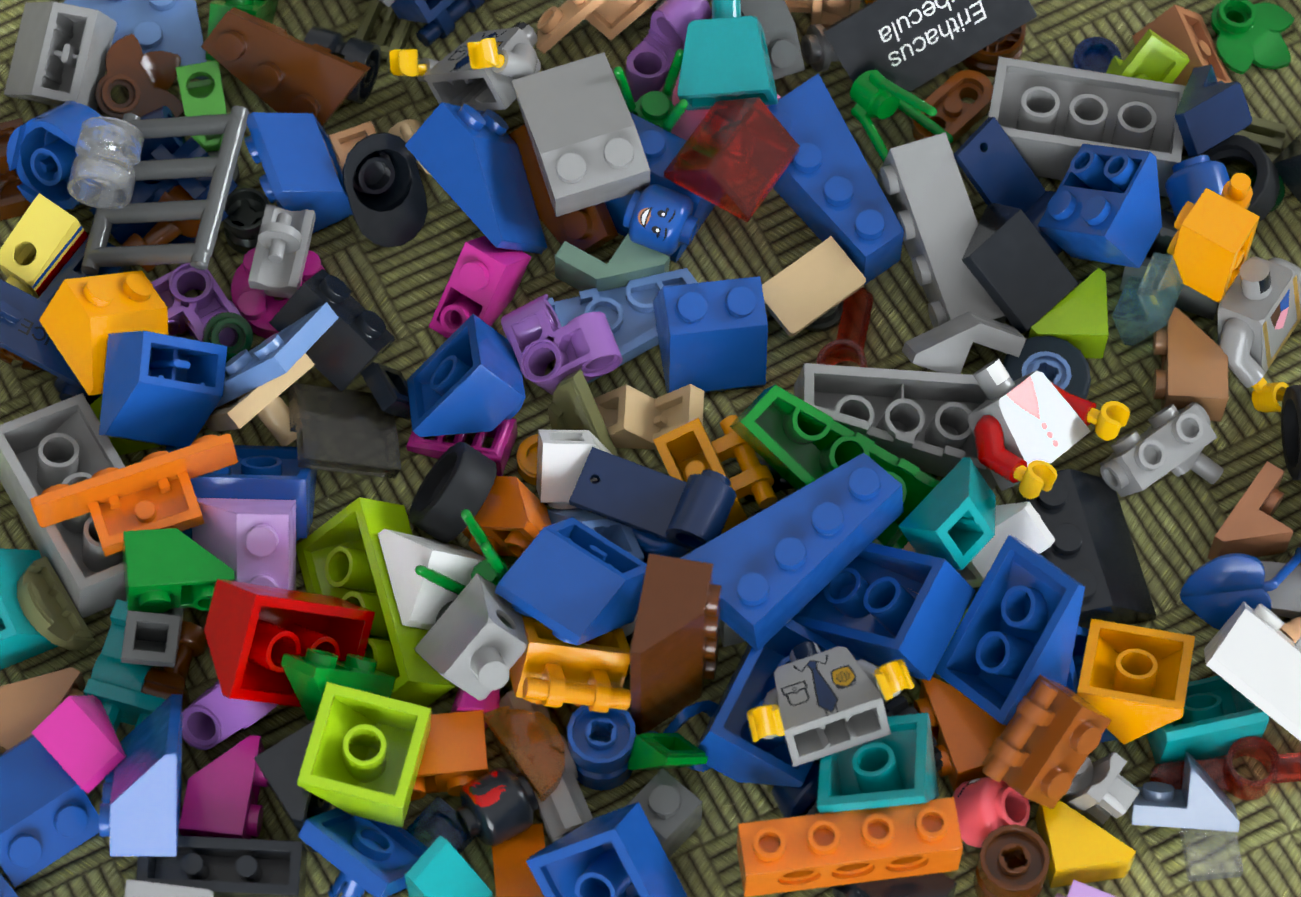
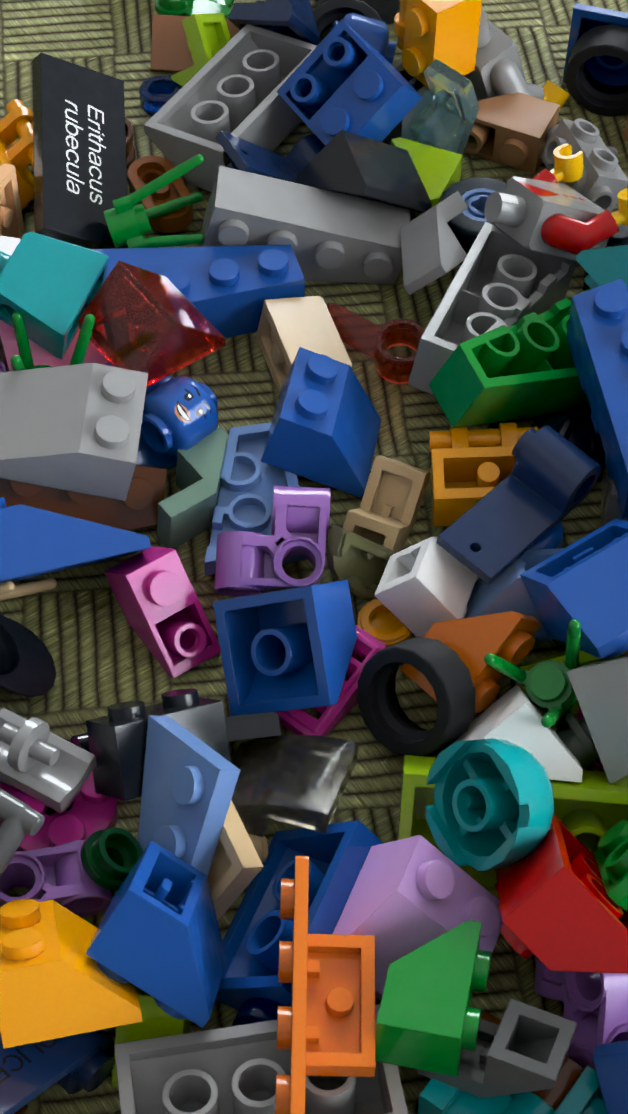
camera: 70 degrees left, 10 degrees down
(339, 559) = (489, 803): none -> teal cylinder

